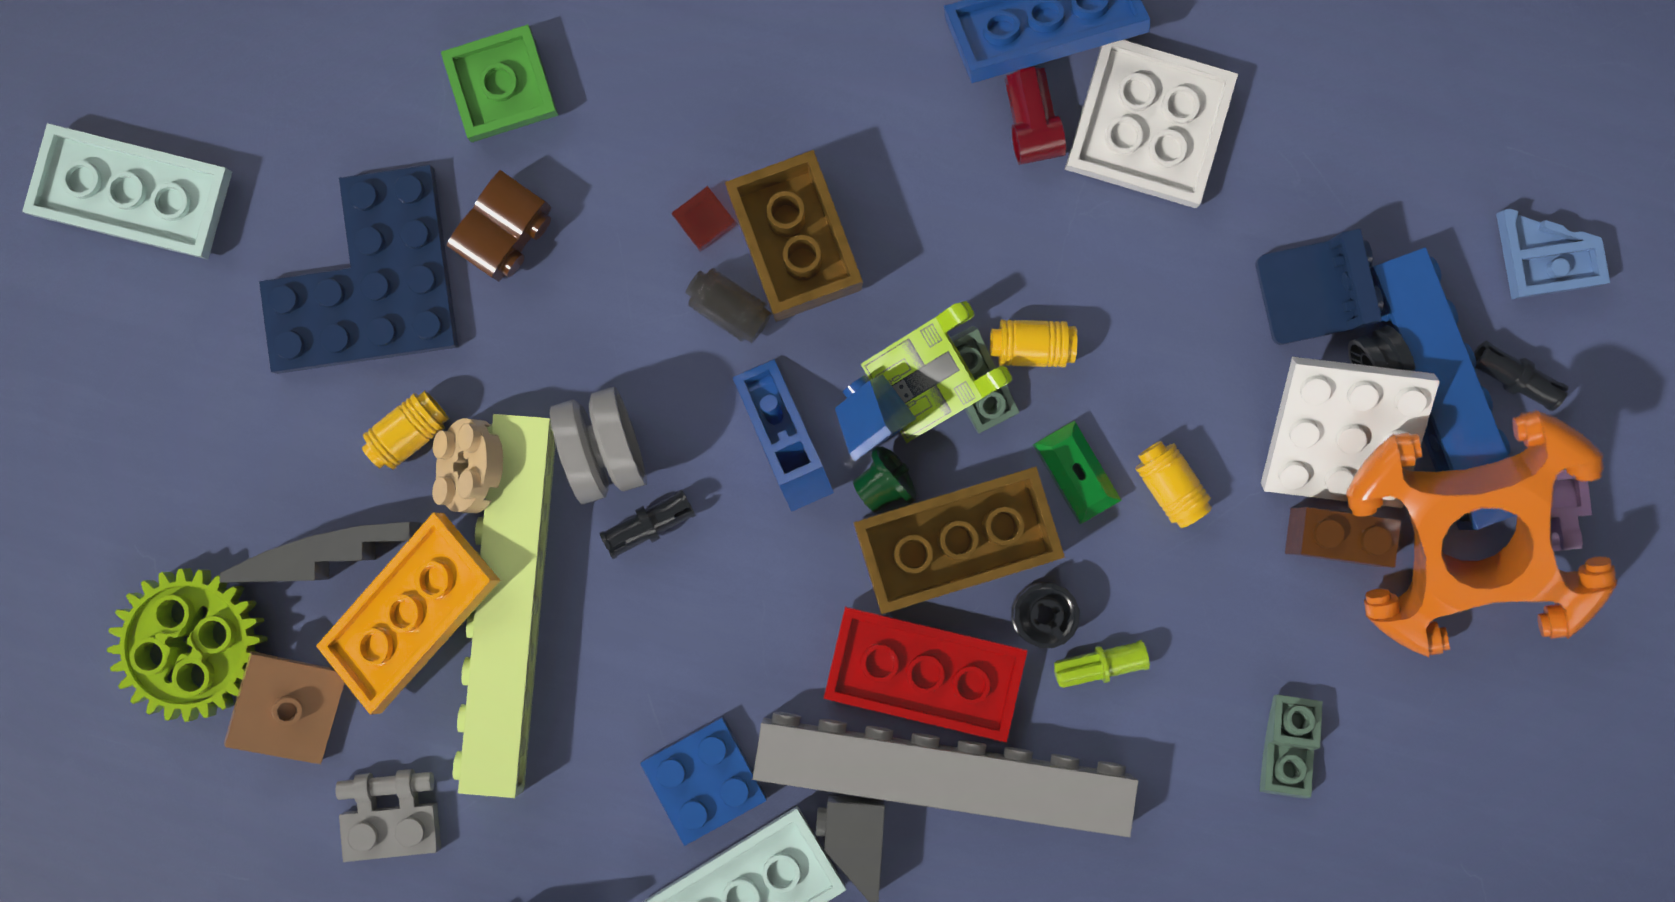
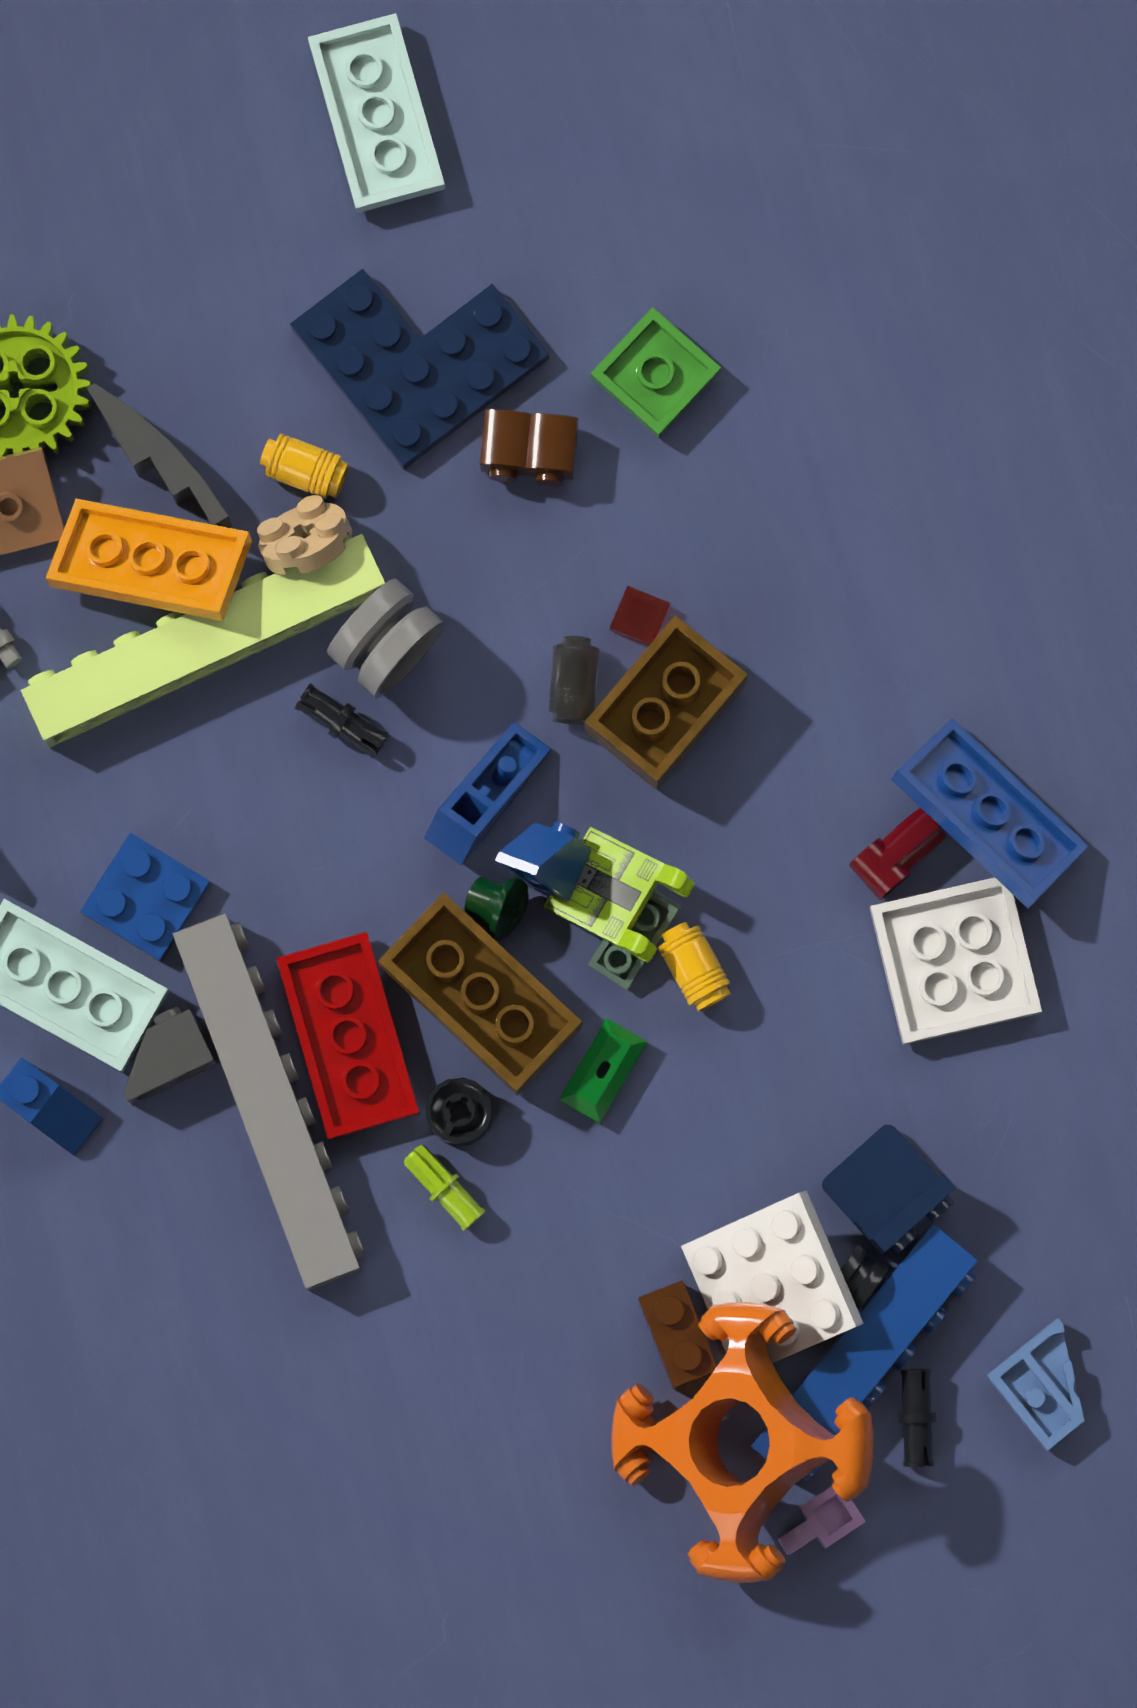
camera: 65 degrees right, 5 degrees down
(1173, 484) = (640, 1160): yellow head -> none
(1290, 745) = (466, 1397): sand green slope -> none

